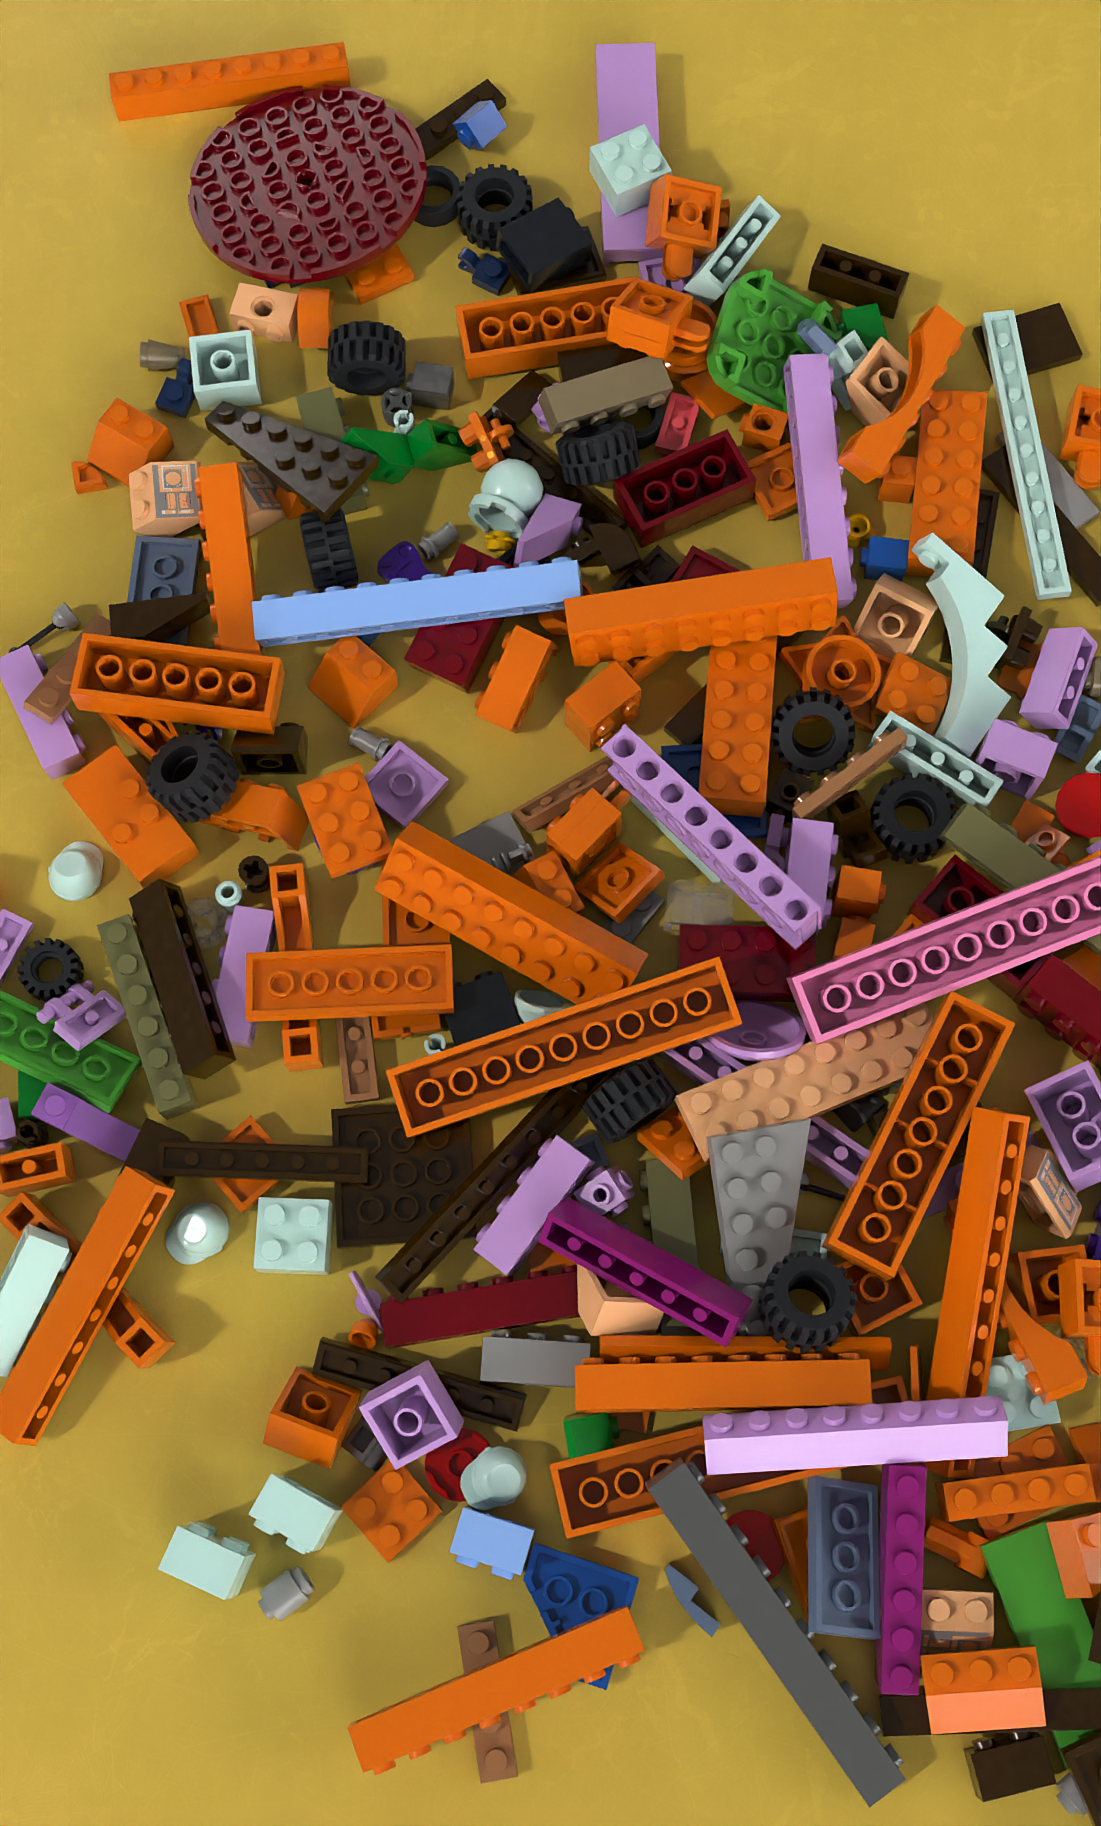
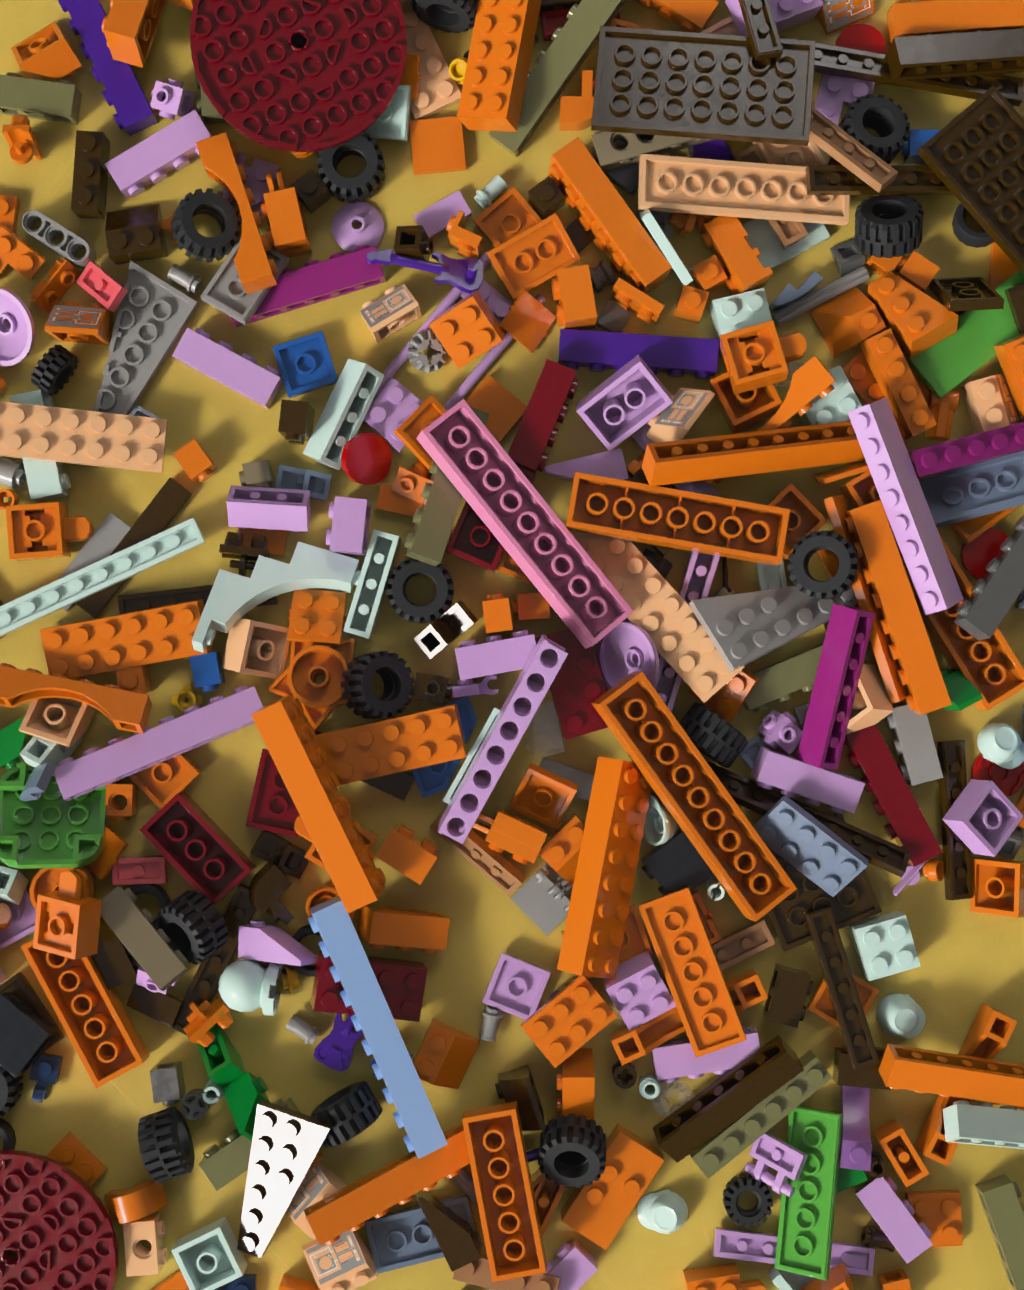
camera: 110 degrees left, 15 degrees up
(276, 1096) = (787, 995): none -> dark brown brick
(349, 914) = (639, 991): none -> lavender brick
(452, 1175) = (810, 846): none -> sand blue plate
(858, 768) = (419, 655): medium nougat plate -> none
(1007, 1080) = (604, 464): none -> lavender slope

